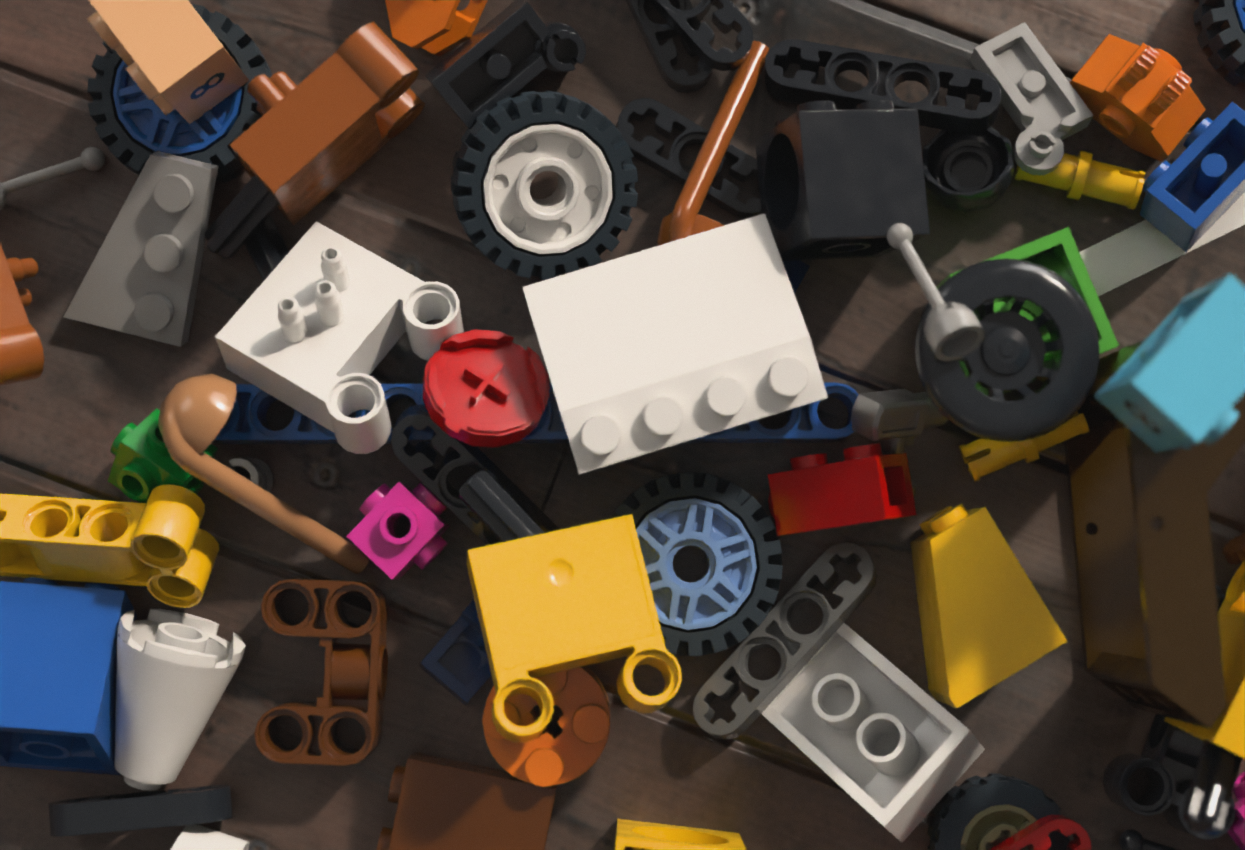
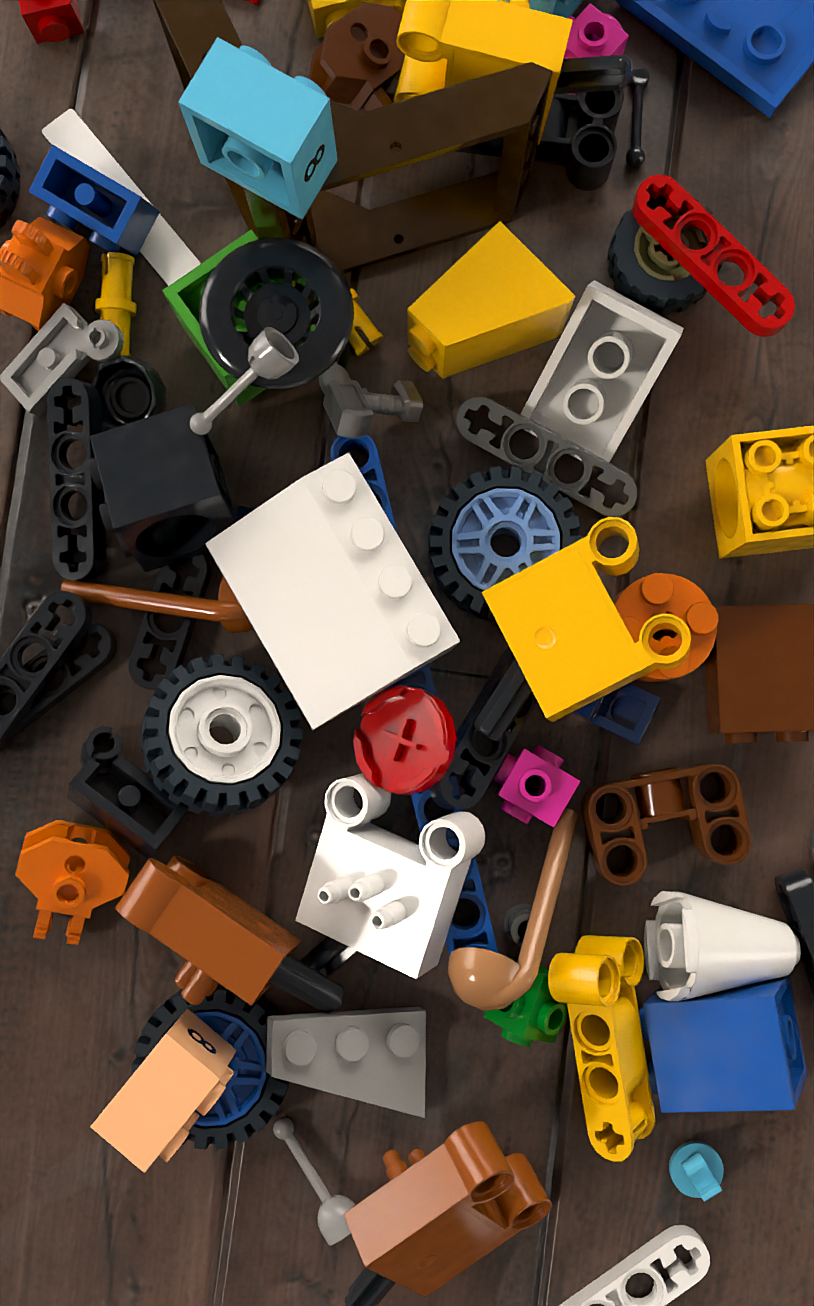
camera: 100 degrees left, 0 degrees up
(841, 493) = (421, 433): red brick -> none

